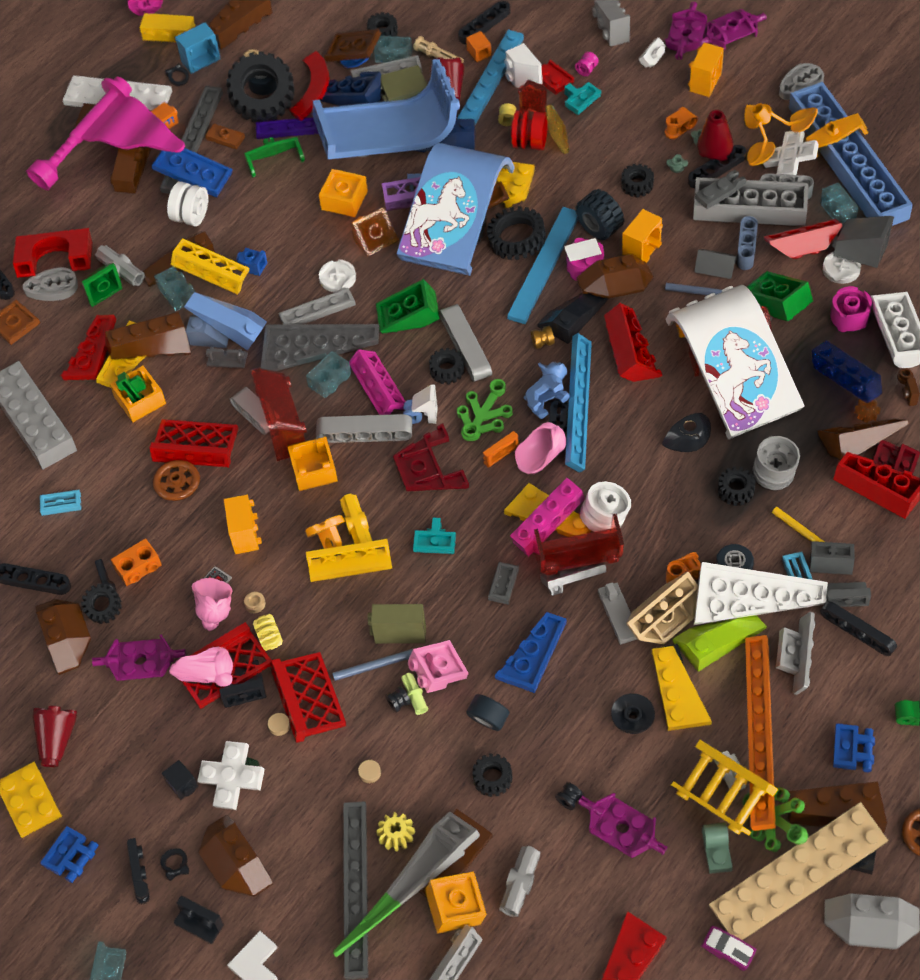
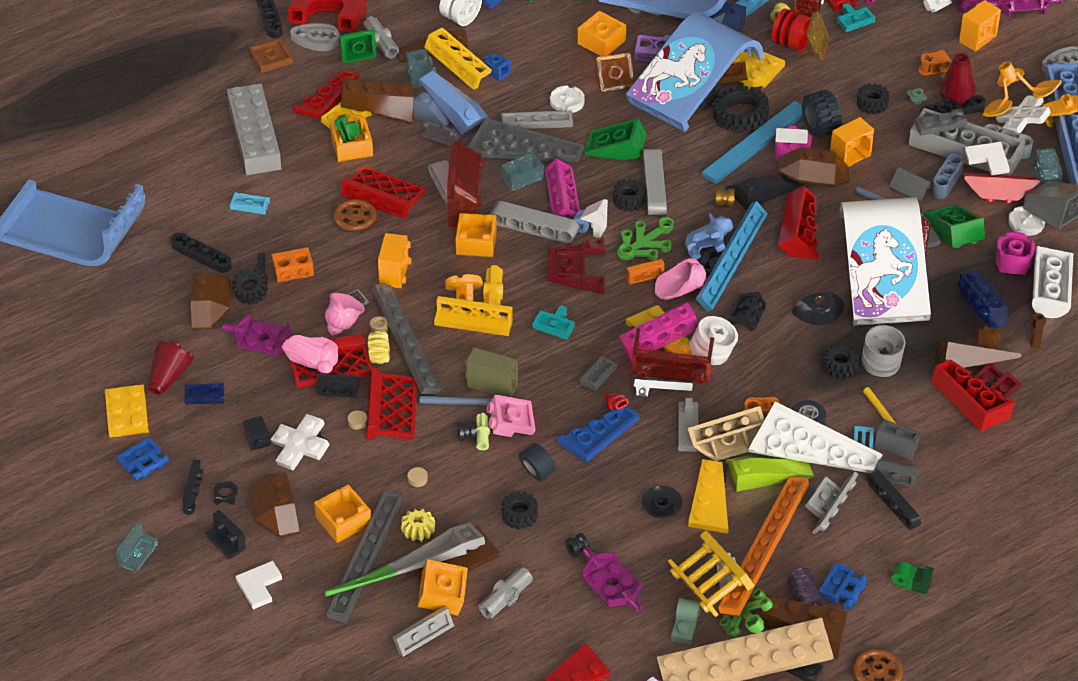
camera: 15 degrees right, 10 degrees down
(104, 750) = (204, 393): none -> clear blue plate
(290, 611) = (406, 339): none -> dark grey plate
(311, 846) = (342, 513): none -> light orange container
(536, 612) = (615, 401): none -> red piece
(620, 458) = (747, 310): none -> black bracket
(785, 208) = (990, 153): none -> white tile
(818, 768) = (803, 587): none -> clear purple piece

